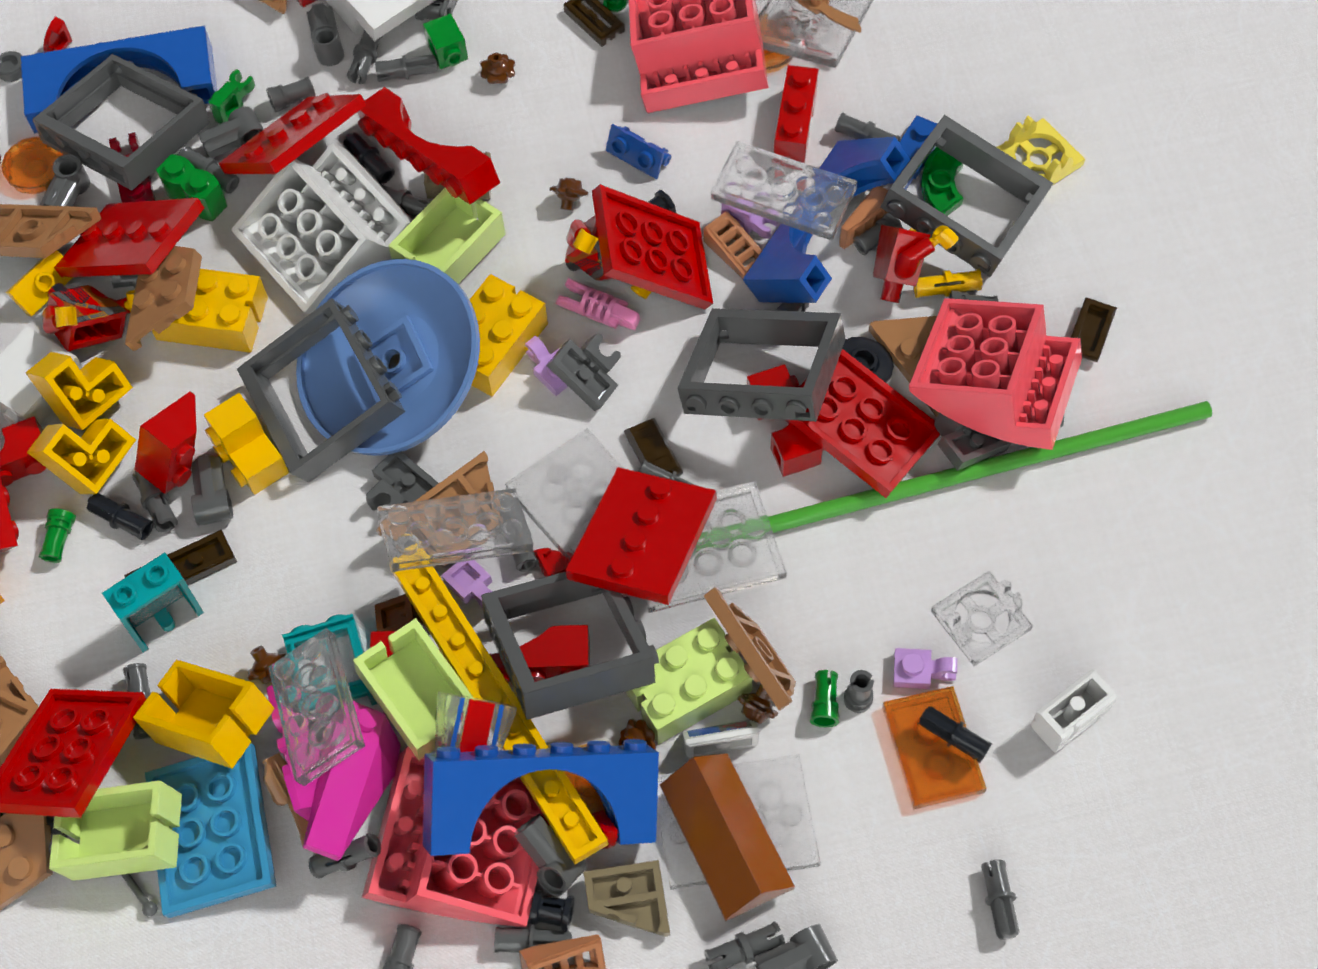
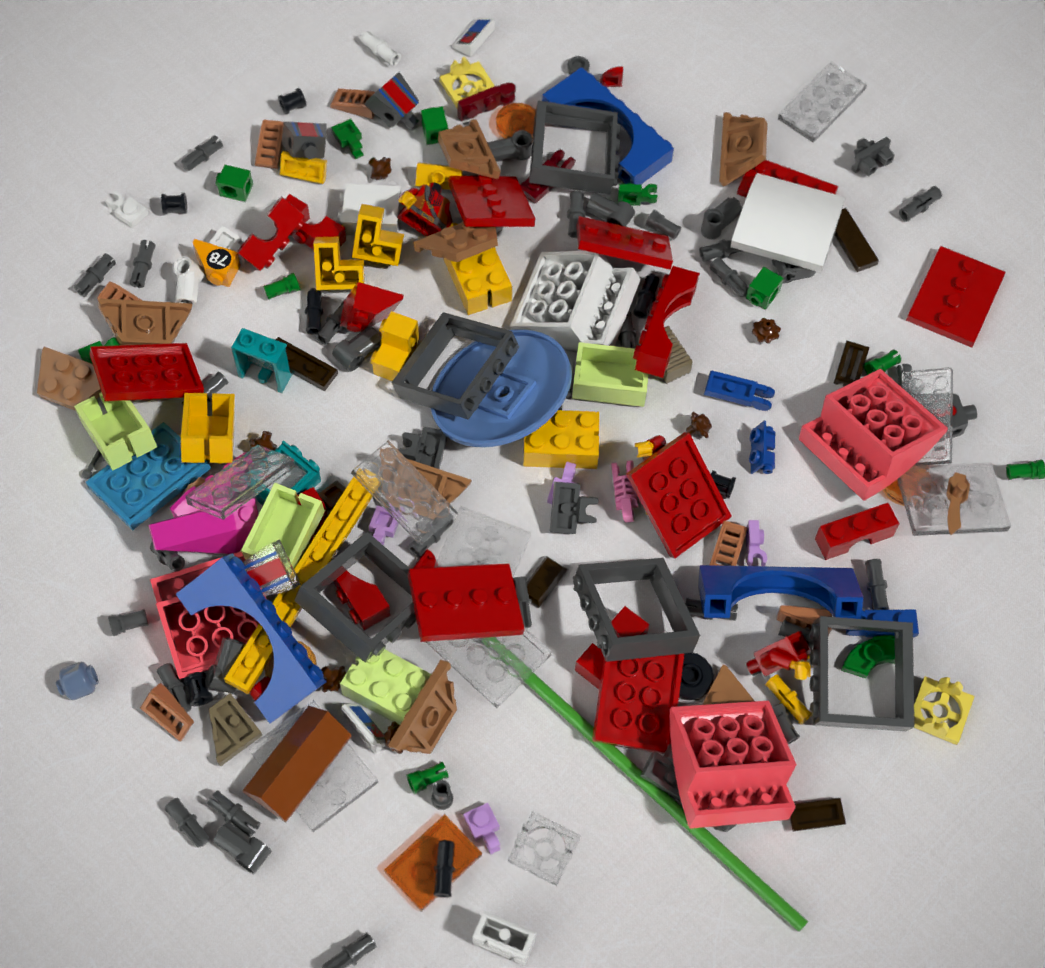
camera: 55 degrees right, 0 degrees up
(184, 181) = (555, 213): green brick -> none
(551, 134) = (738, 390): none -> blue hinge
(784, 190) = (779, 552): clear plate -> none

